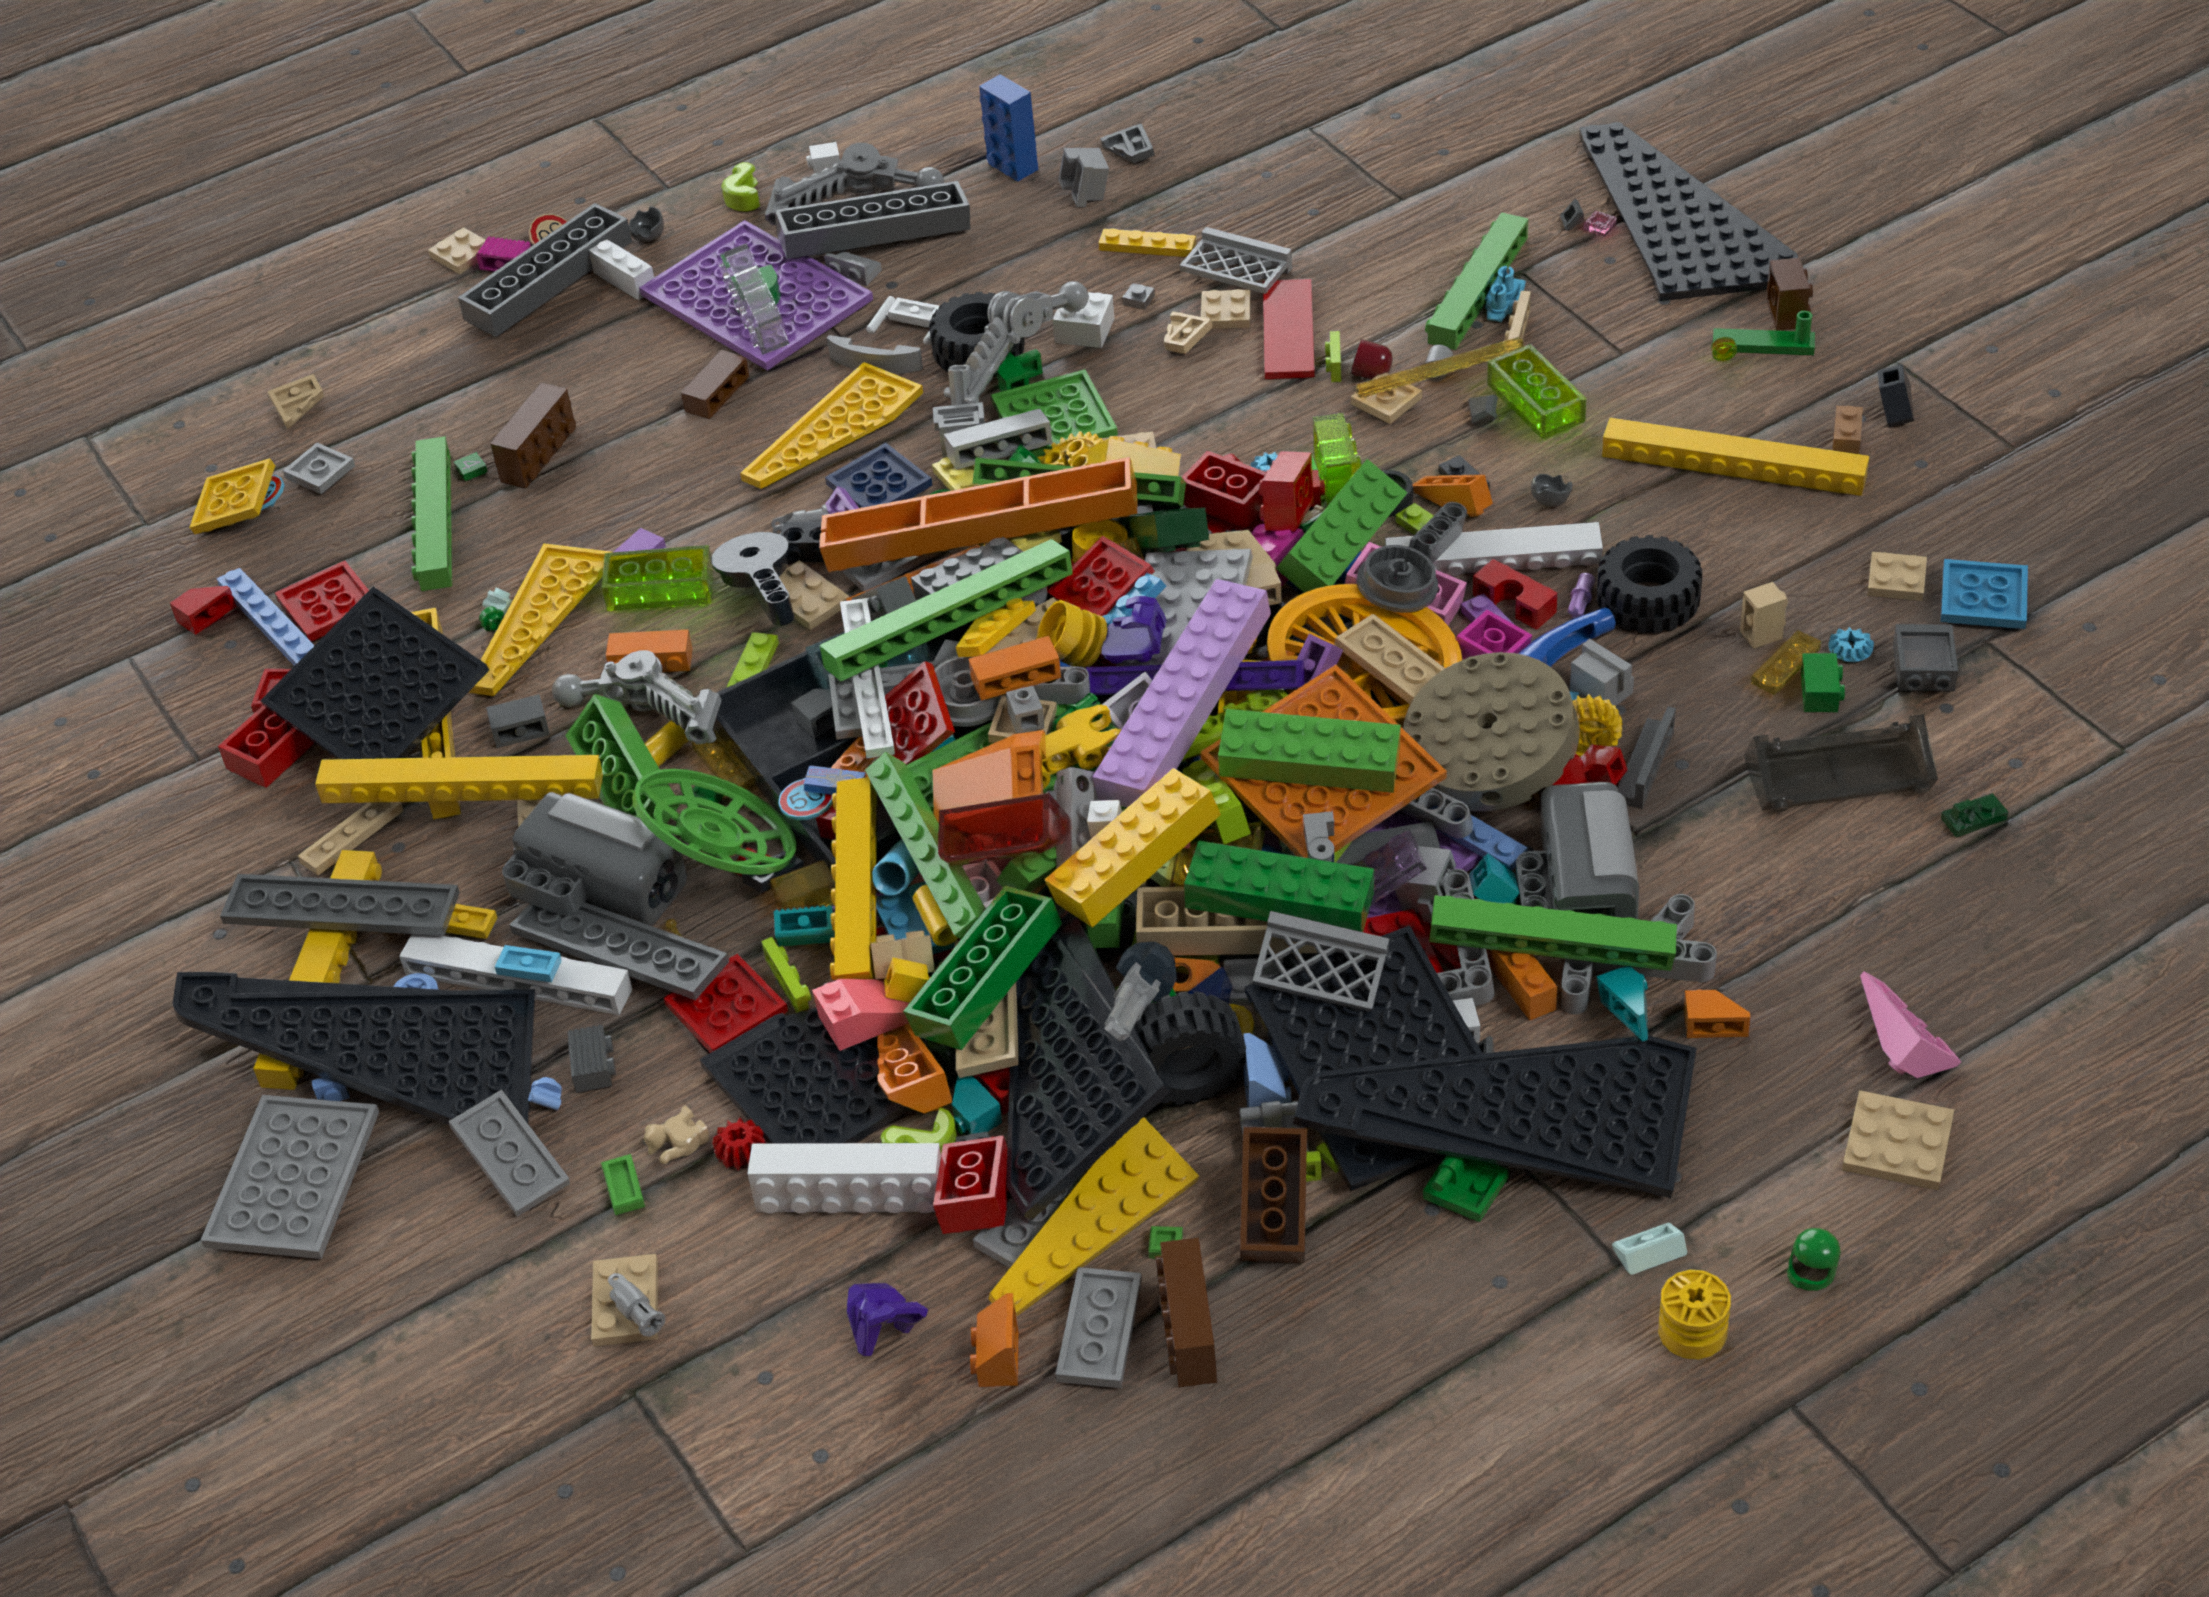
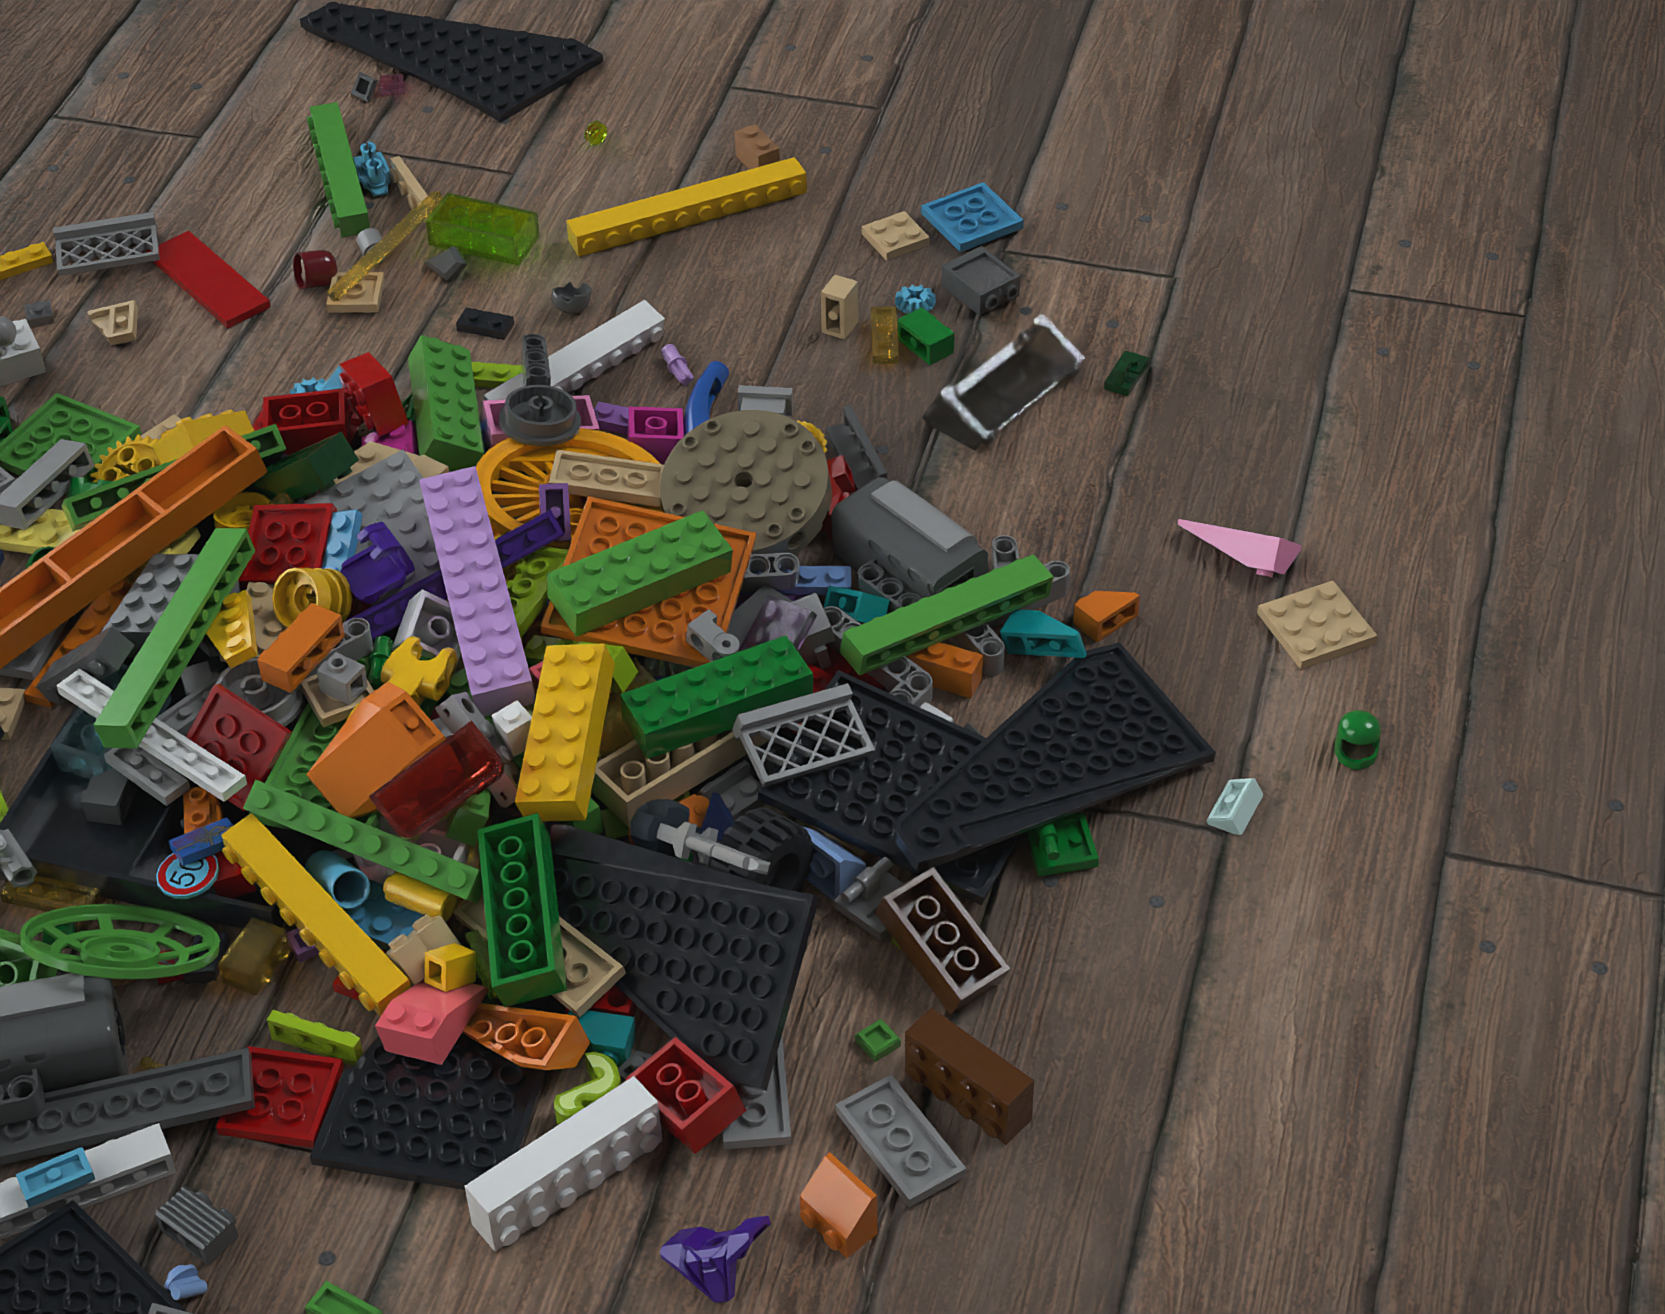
camera: 45 degrees left, 0 degrees up
(679, 1132) = (355, 1233): tan animal -> none
(735, 1142) = (424, 1203): red gear -> none
(803, 926) = (293, 981): teal brick -> none
(1106, 1204) = (810, 1064): yellow wing -> none
(1226, 308) = (133, 284): tan plate -> none
(1333, 357) = (277, 280): lime plate -> none
(1334, 452) = (357, 336): clear neon green brick -> none
(1467, 490) = (497, 335): orange slope -> none
(1533, 600) = (644, 384): red arch -> none
(1656, 562) = (728, 326): black tyre -> none
(1694, 1314) = (1327, 829): yellow wheel -> none
(1774, 342) = (624, 112): green piece -> none
(1787, 292) = (608, 69): reddish brown brick -> none
(1896, 395) = (765, 107): black slope -> none

